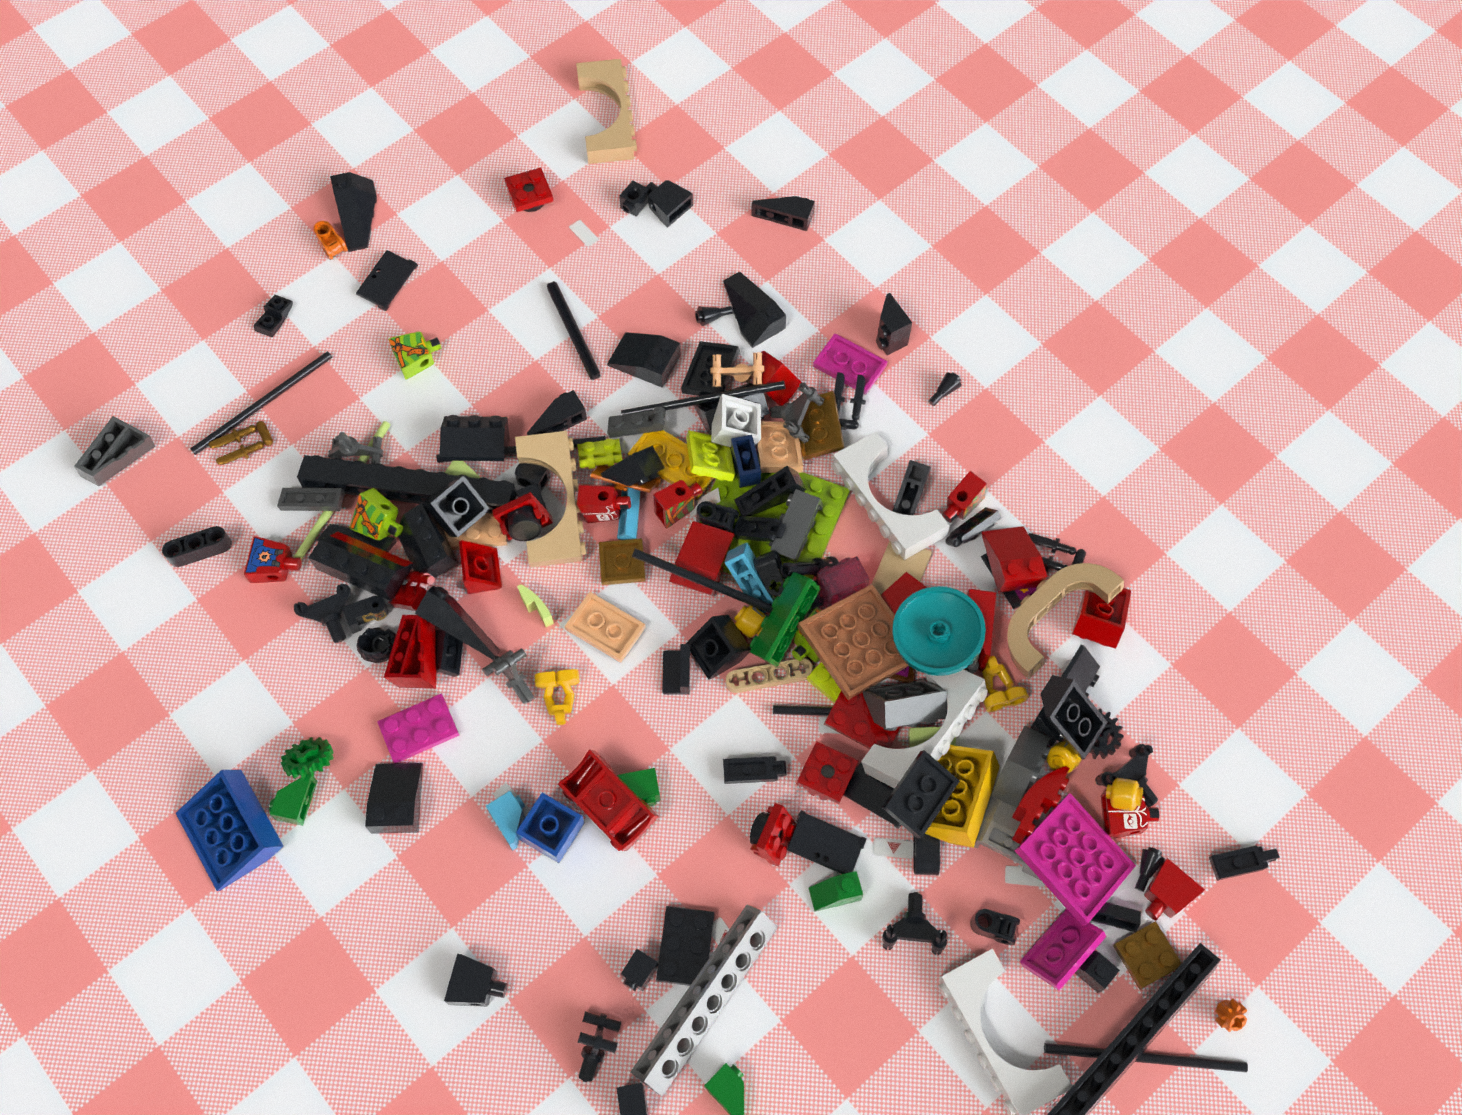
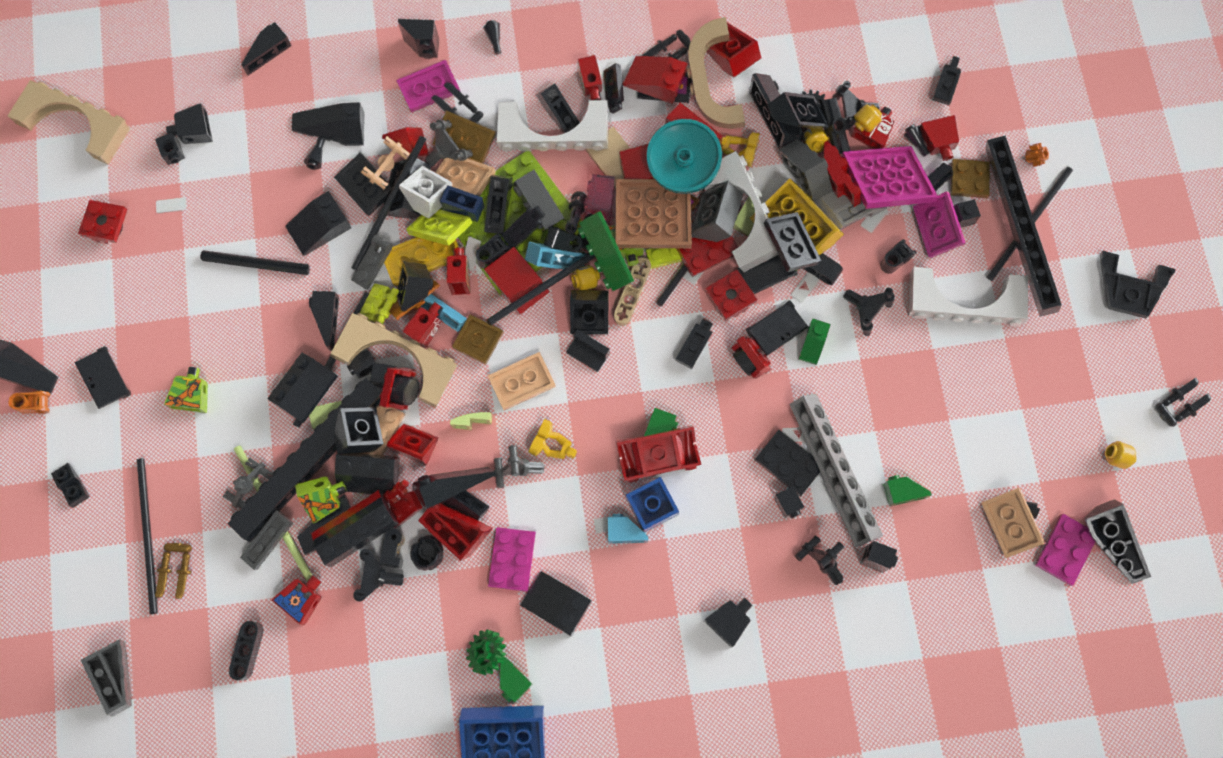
camera: 55 degrees left, 10 degrees up
(1102, 754) = (833, 116): none -> black piece

